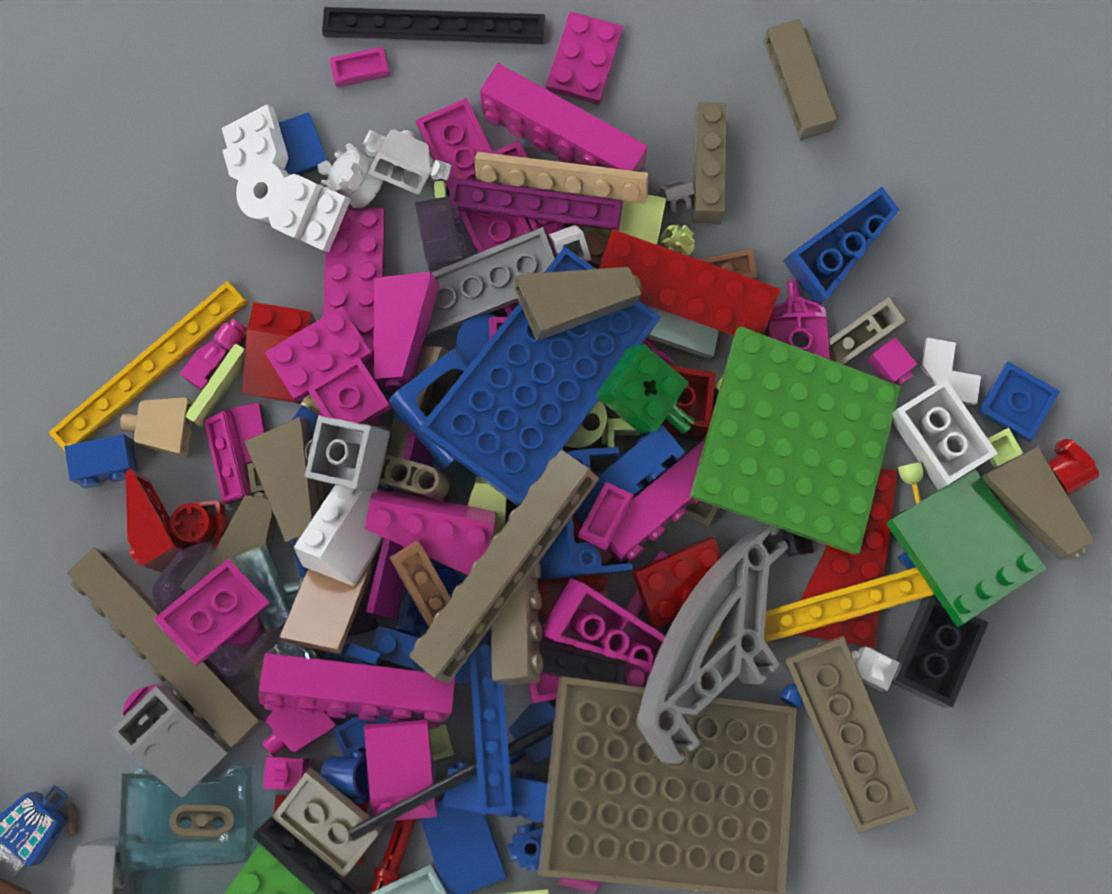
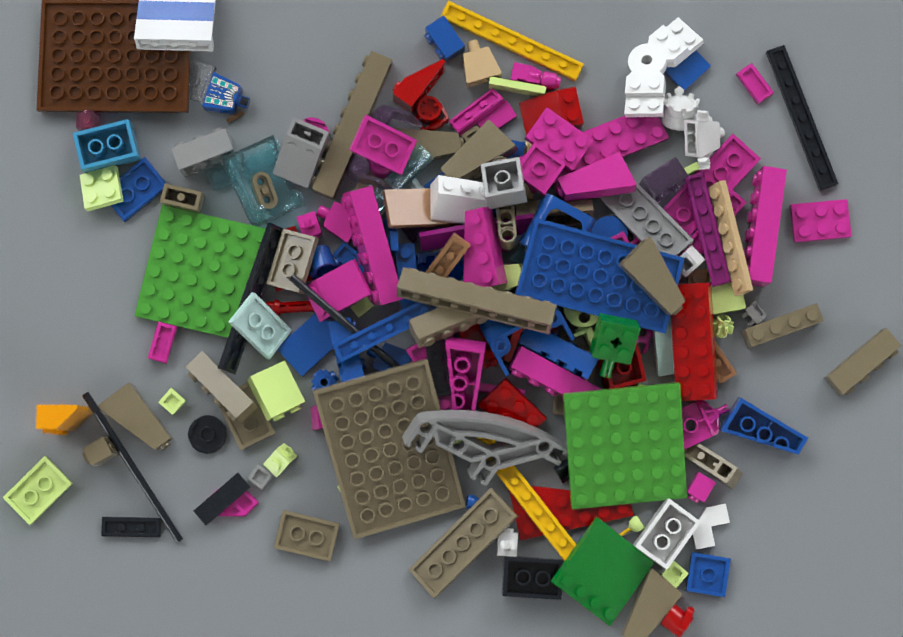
camera: 60 degrees right, 5 degrees up
(605, 516) = (530, 347): dark pink tile -> none

